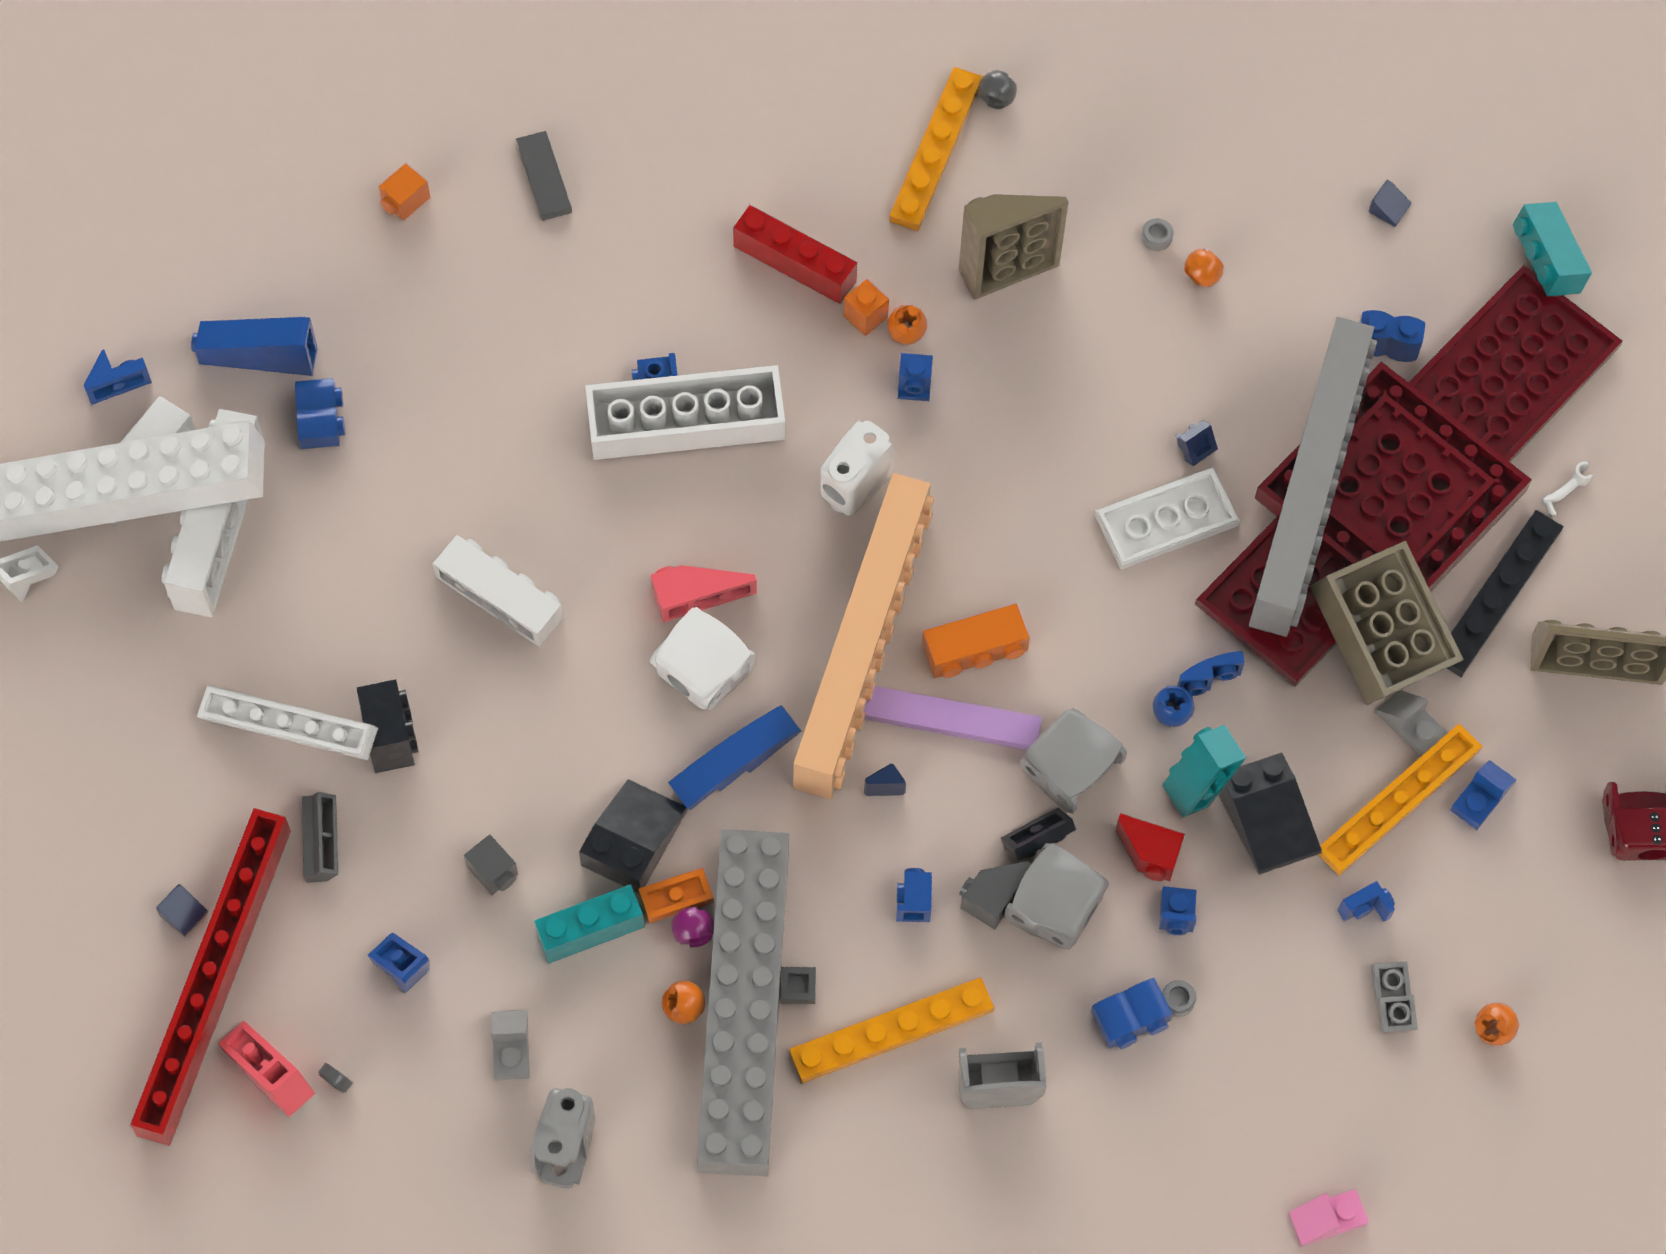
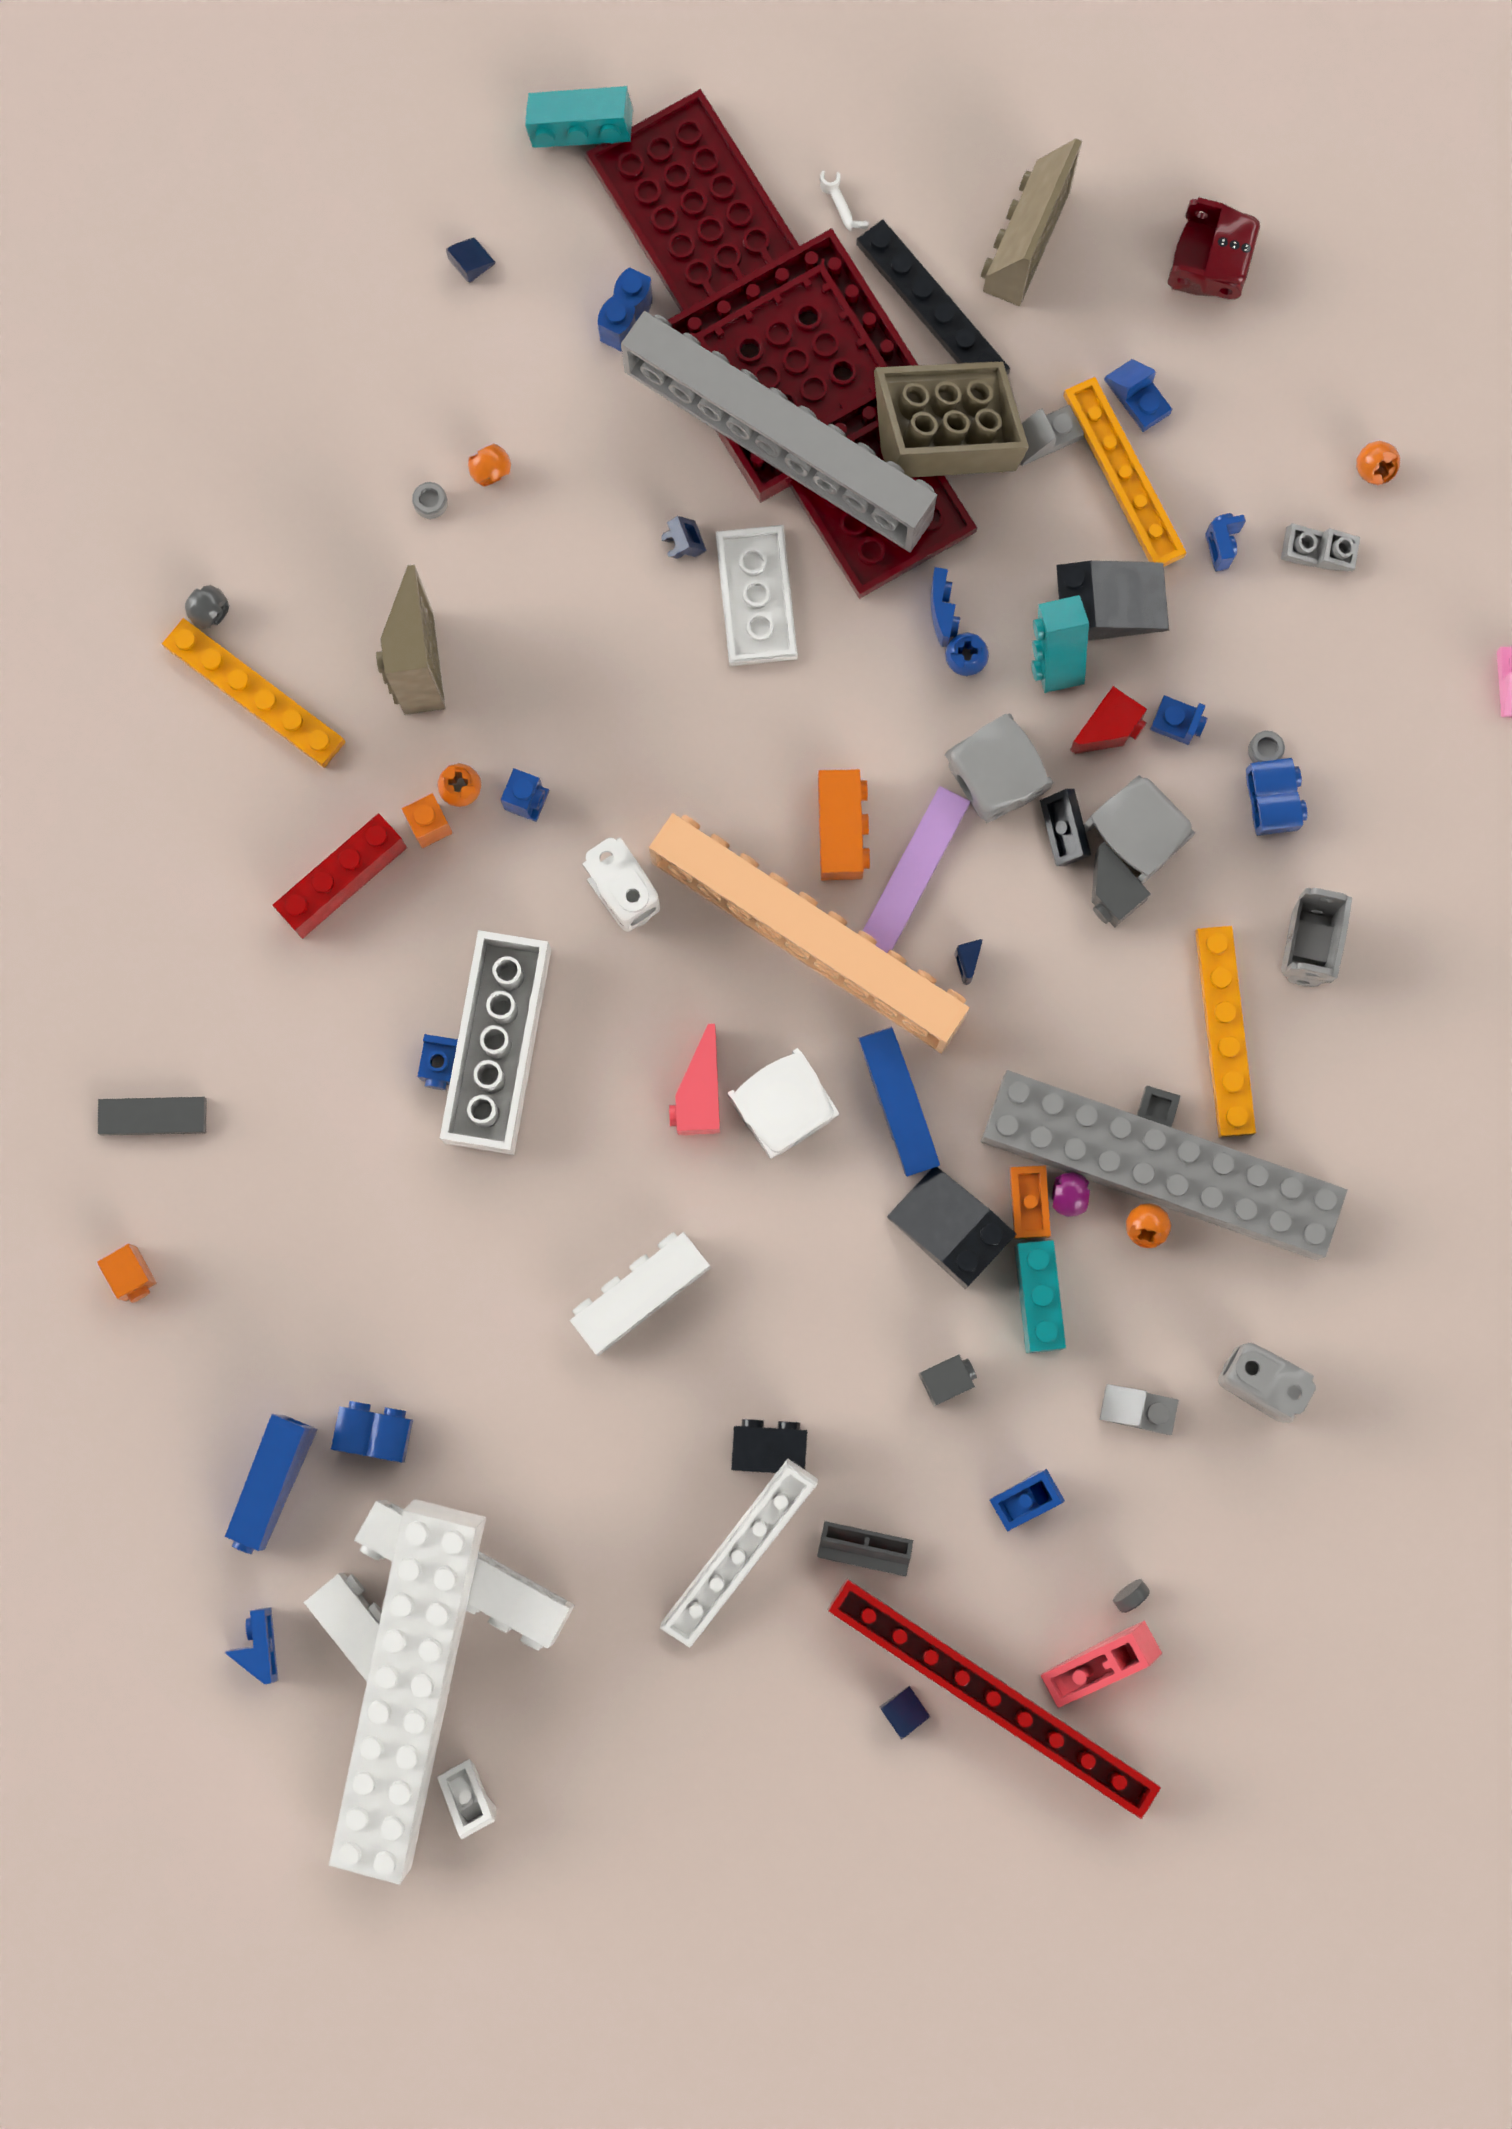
camera: 70 degrees left, 15 degrees up
(914, 896) = (1097, 966): blue brick -> none

